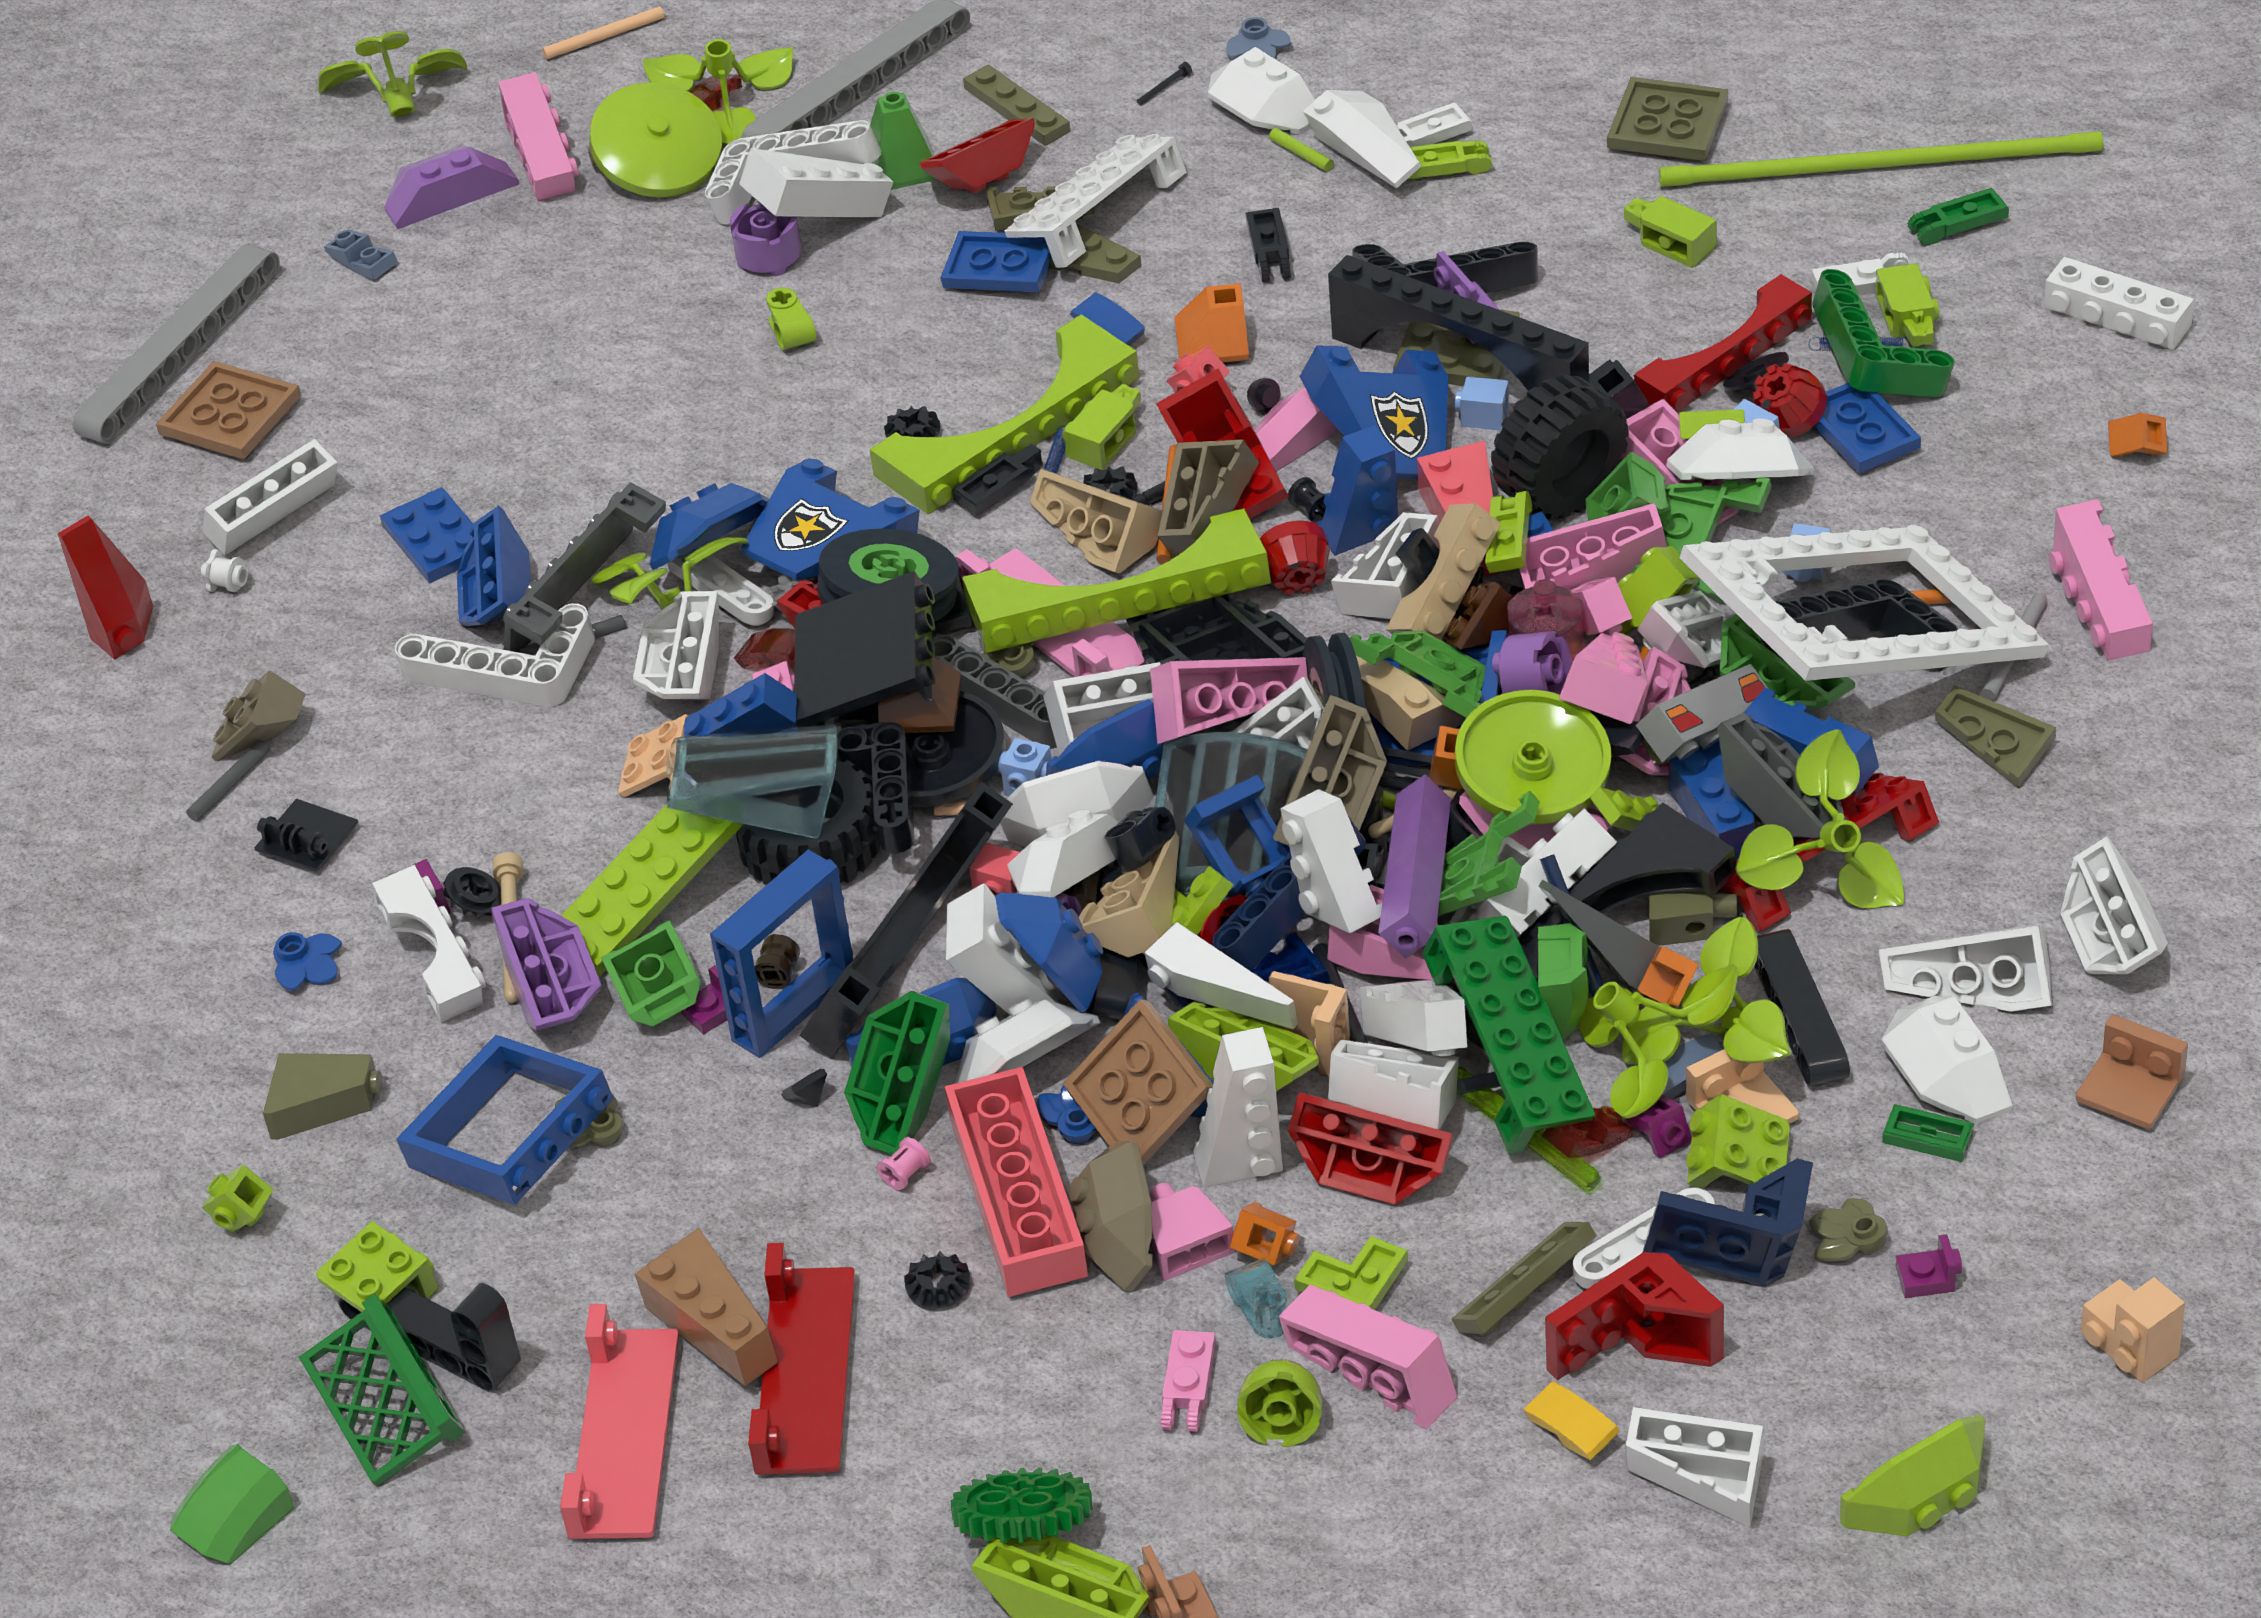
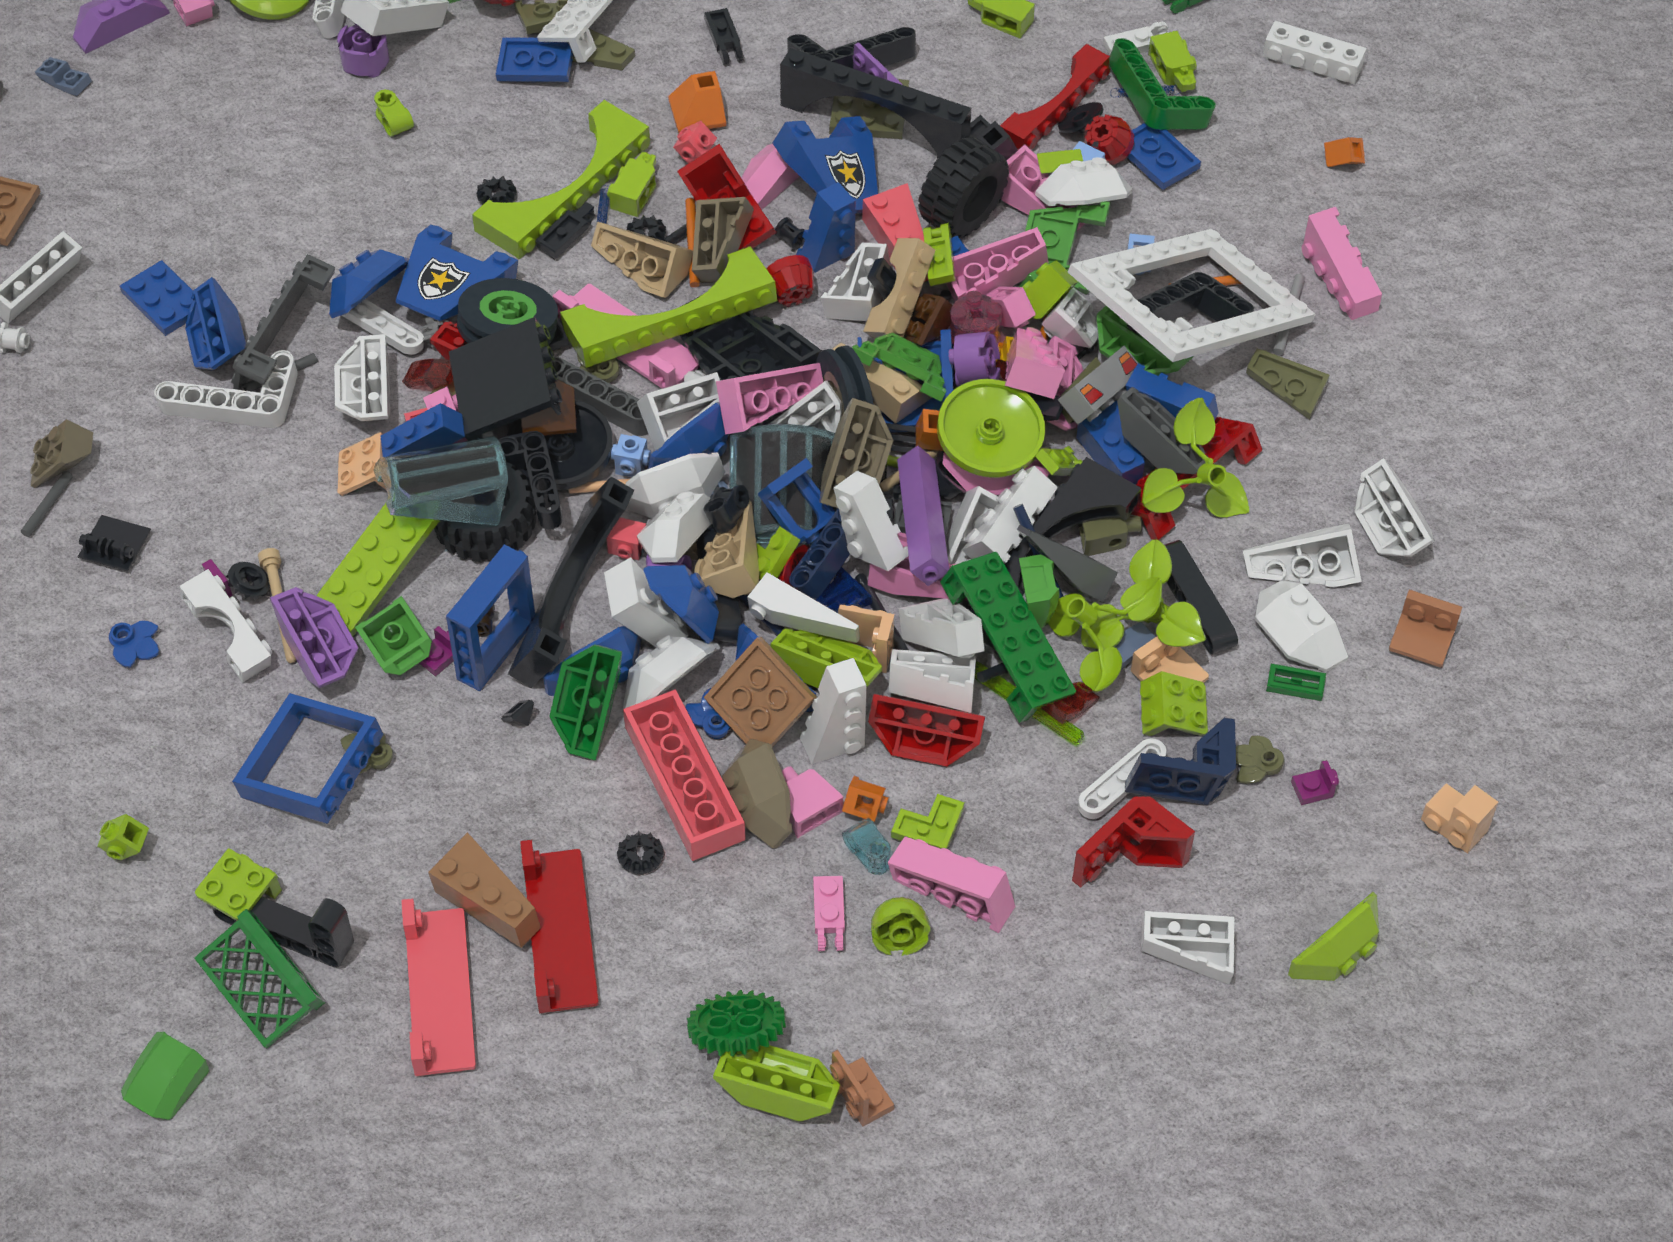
camera: 15 degrees left, 10 degrees up
(318, 1091) = (165, 745): olive slope -> none
(629, 589) = (326, 339): lime plant -> none
(903, 1163) = (600, 766): bright pink bush -> none
(1110, 318) = (622, 99): blue slope -> none
(1263, 394) = (742, 154): black plate -> none
(1472, 866) = (962, 510): bright green wing -> none
(1483, 403) = (897, 152): light blue brick -> none
(1531, 1271) = (1047, 815): olive plate -> none
(1572, 1419) = (1099, 918): yellow slope -> none
(1628, 487) = (1012, 216): bright green slope -> none
(1664, 1125) = (1121, 693): magenta bracket -> none
(1667, 977) = (1109, 586): orange panel -> none

